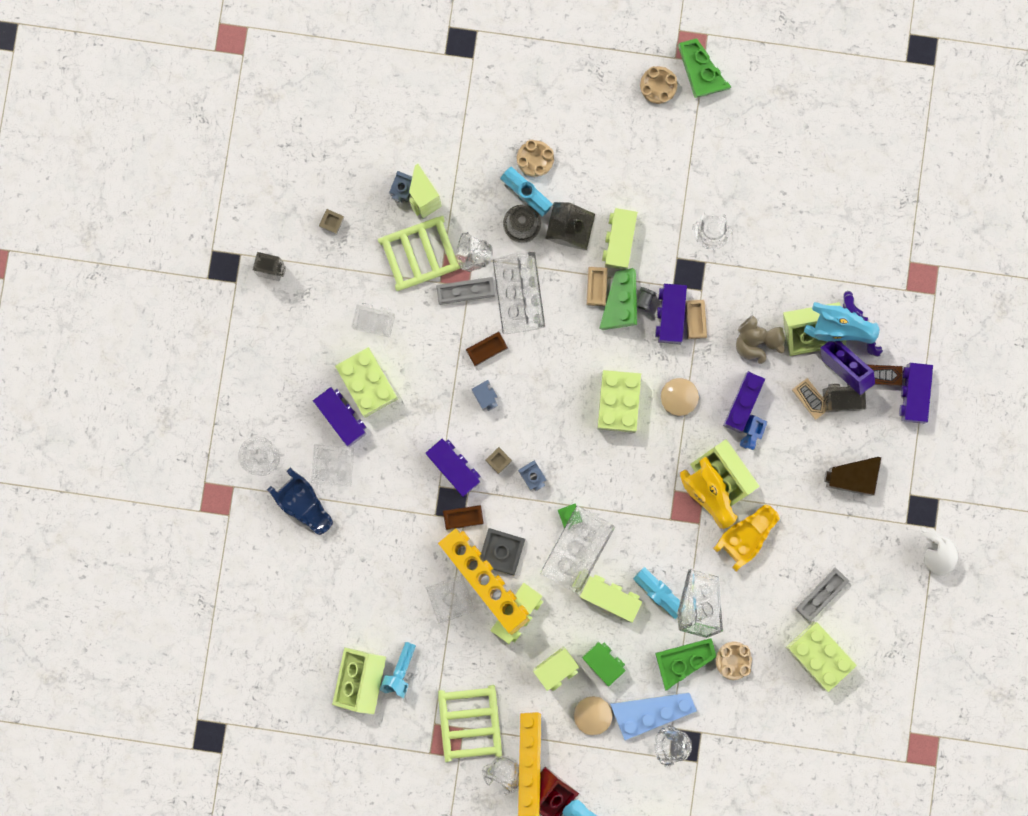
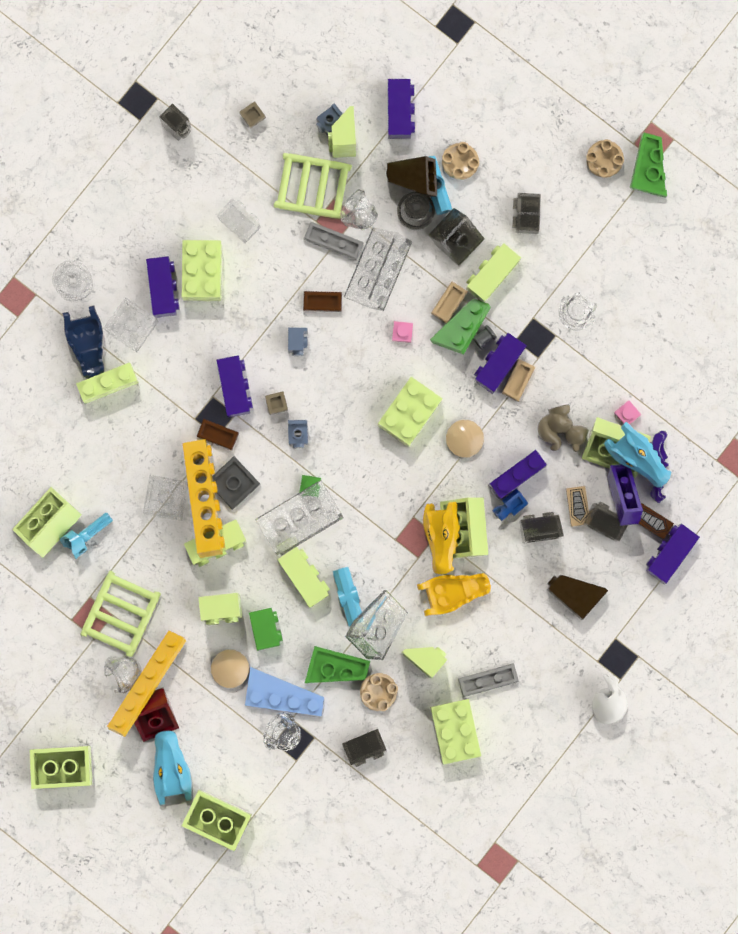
camera: 20 degrees right, 0 degrees up
(341, 528) = (107, 383): none -> yellowish green brick
(457, 142) = (400, 109): none -> dark purple brick
(503, 193) = (414, 174): none -> dark brown slope
(571, 335) = (402, 332): none -> bright pink plate
(619, 169) = (527, 213): none -> clear smoke brick
(750, 716) = (364, 747): none -> clear smoke brick
(761, 608) = (426, 659): none -> yellowish green slope
(791, 437) = (540, 528): none -> clear smoke slope
(806, 294) = (627, 413): none -> bright pink plate

